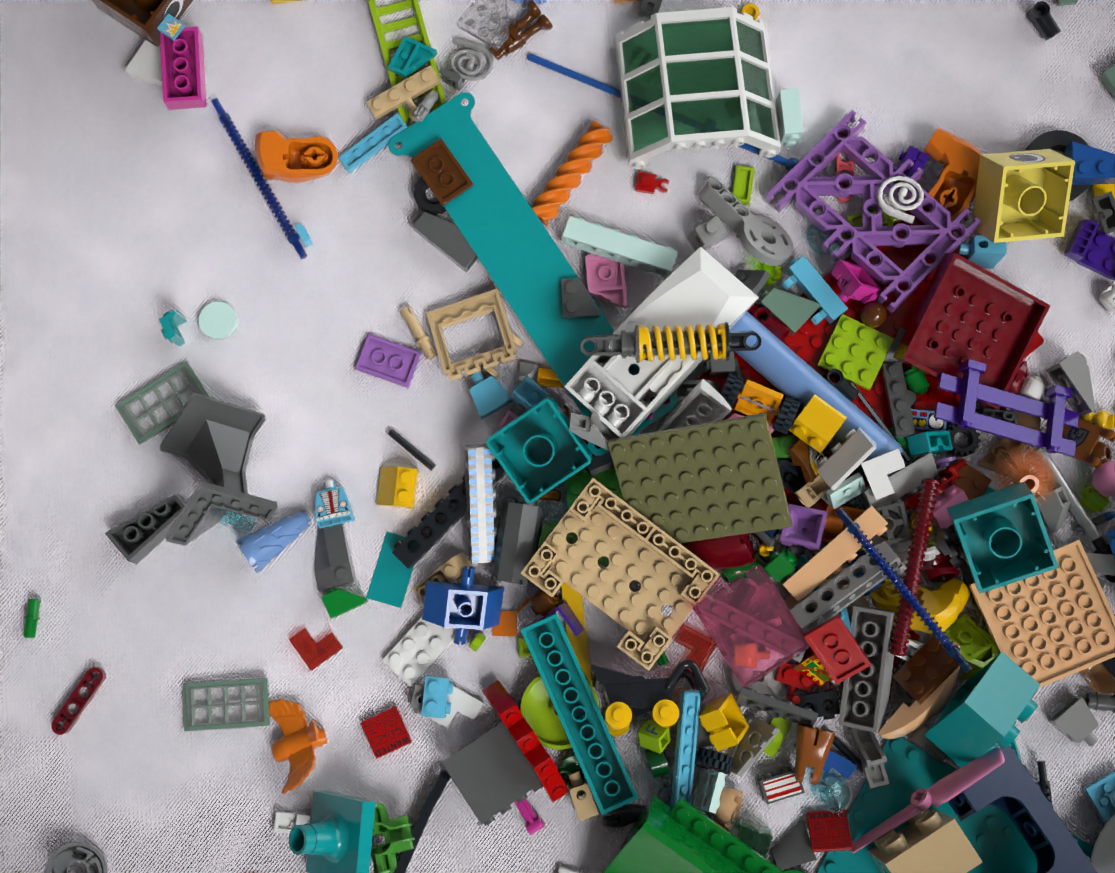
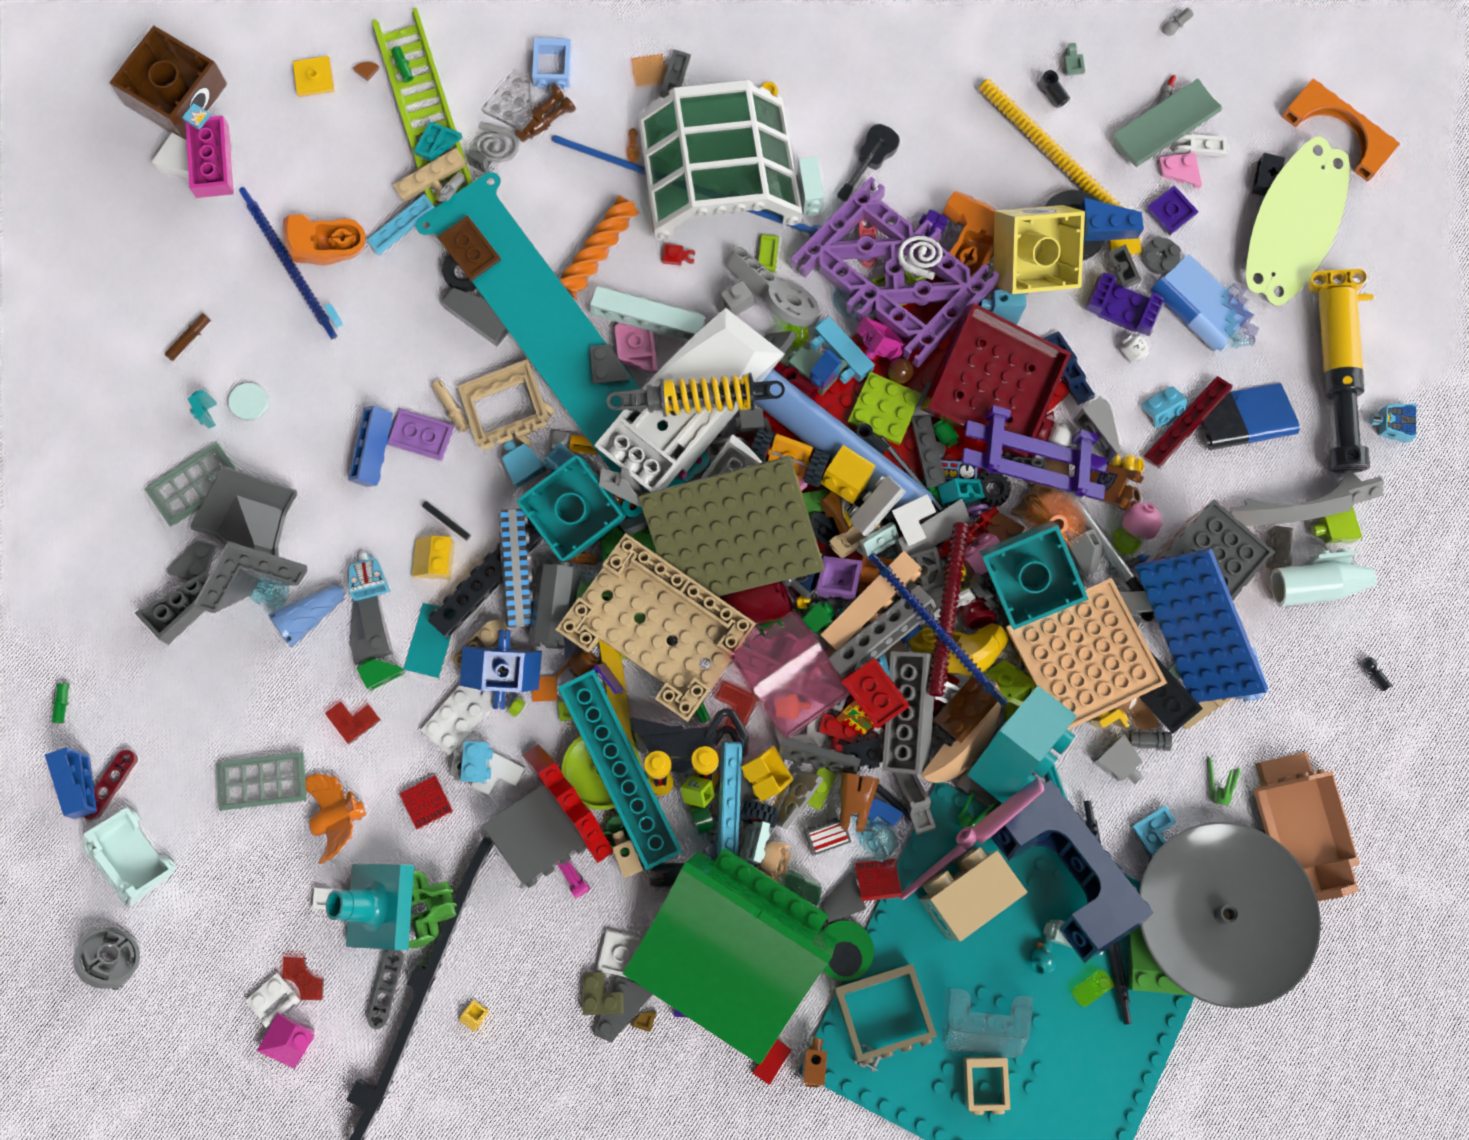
camera: 10 degrees left, 5 degrees down
(43, 699) = (72, 782): none -> blue wedge
(95, 774) = (126, 857): none -> light aqua windscreen
(158, 252) = (187, 337): none -> reddish brown axle
(163, 481) = (193, 561): none -> dark grey wing
(338, 372) = (370, 446): none -> brick
(609, 71) = (633, 150): none -> clear orange piece
(798, 314) = (825, 369): none -> blue slope
(860, 75) = (880, 145): none -> black piece
(922, 778) = (969, 820): none -> green plant
(1033, 79) = (1044, 142): none -> yellow piece
(1051, 326) = (1073, 375): none -> dark blue slope
(1074, 680) = (1113, 716): none -> yellow bracket

